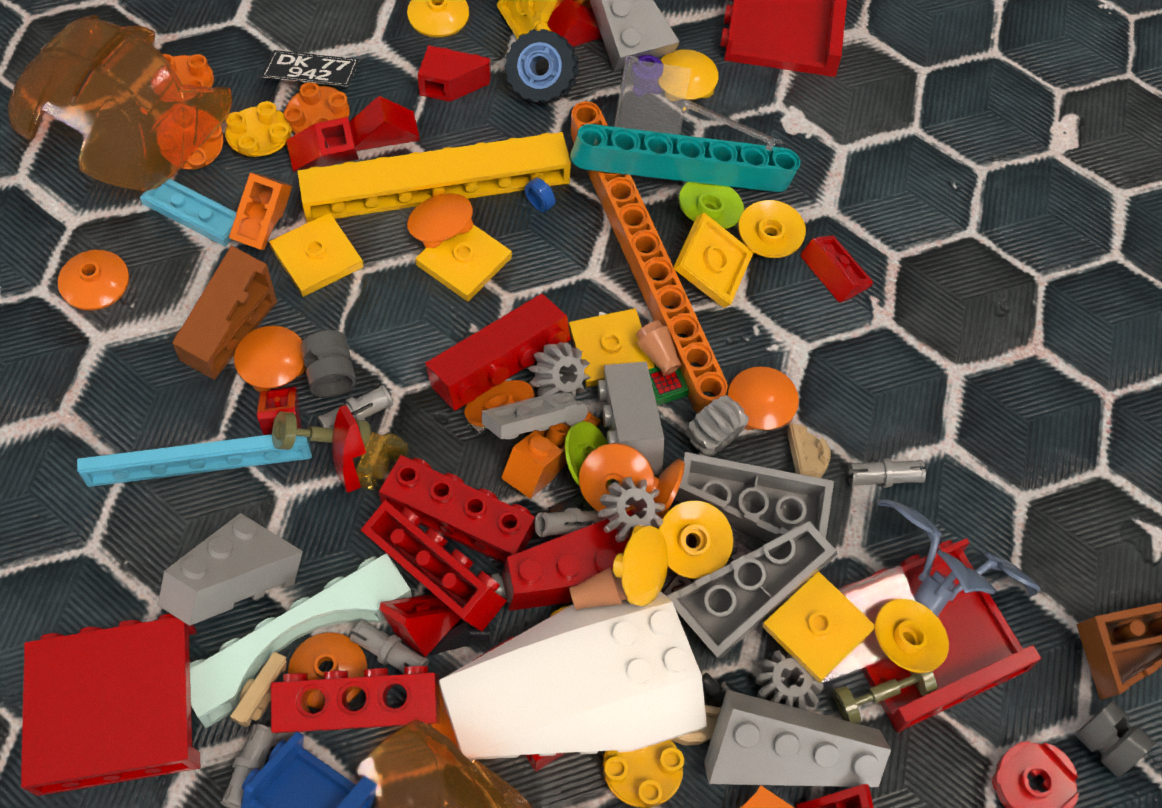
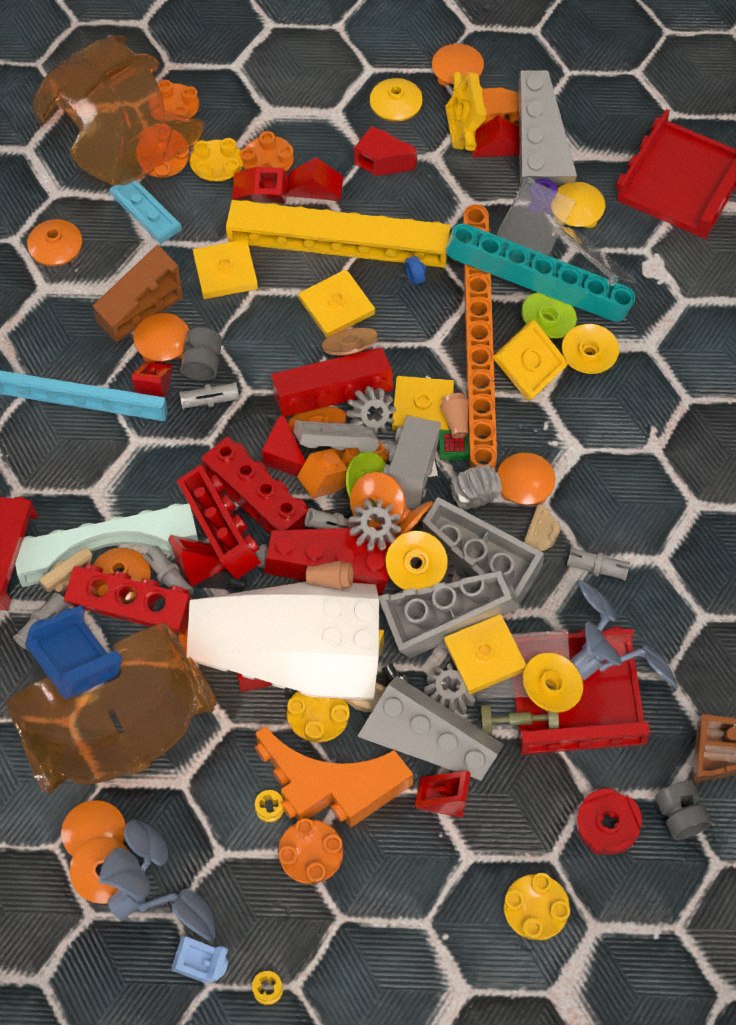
camera: 25 degrees right, 0 degrees up
(226, 568) = (73, 477): light grey wedge -> none
(259, 210) = (193, 222): orange arch -> none
(286, 430) = (201, 415): olive wheel -> none
(310, 68) = (275, 120): black sticker -> none
(345, 446) = (189, 418): red slope -> none
(376, 460) = (210, 433): clear yellow bracket -> none
(440, 219) = (328, 268): orange dish -> none
(473, 450) = (282, 450): none -> red slope
(500, 297) = (350, 341): none -> medium nougat dish
(523, 60) = (440, 167): black wheel -> none
(643, 565) = (365, 565): yellow dish -> none
(835, 268) = (632, 395): red slope -> none

